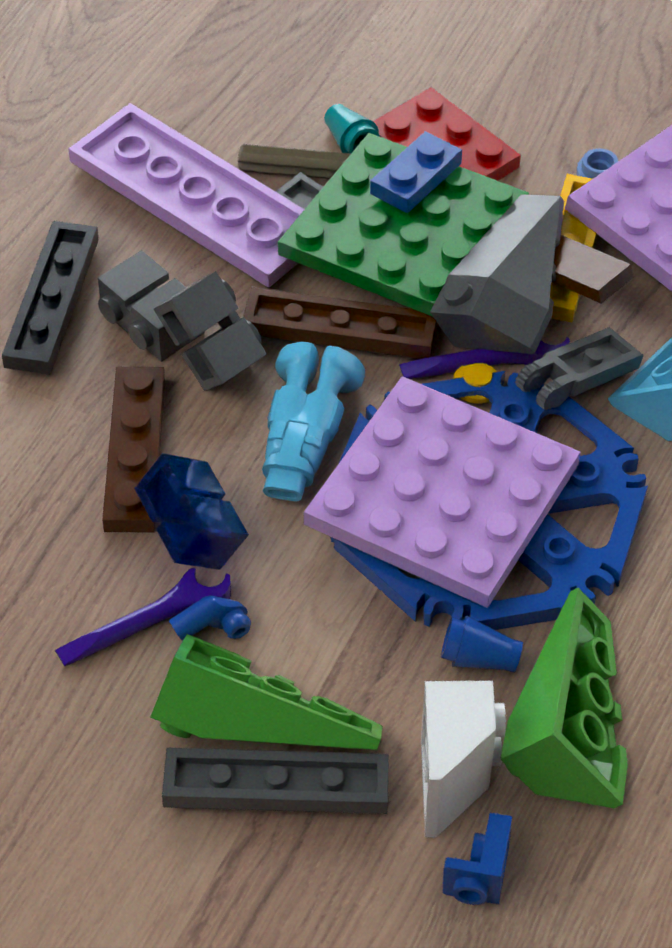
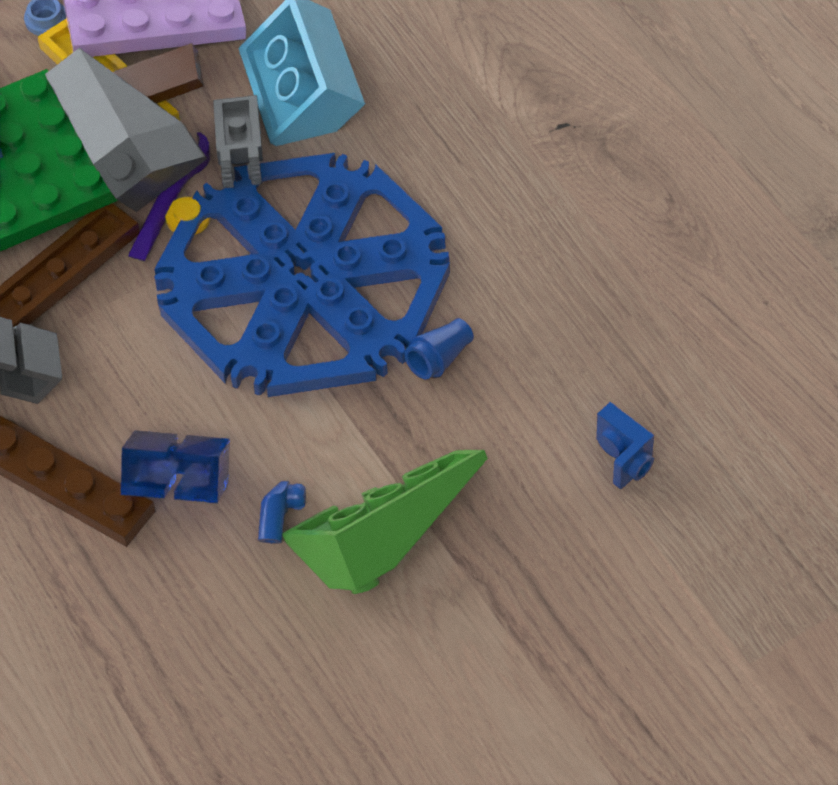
camera: 55 degrees left, 5 degrees up
(176, 600) = (242, 519): dark purple piece -> none
(276, 780) = (459, 542): dark grey plate -> none
(303, 422) = (138, 349): medium azure piece -> none
(443, 490) = (287, 289): lavender plate -> none
(458, 747) = (529, 407): white slope -> none
(565, 717) = (544, 337): bright green wedge -> none

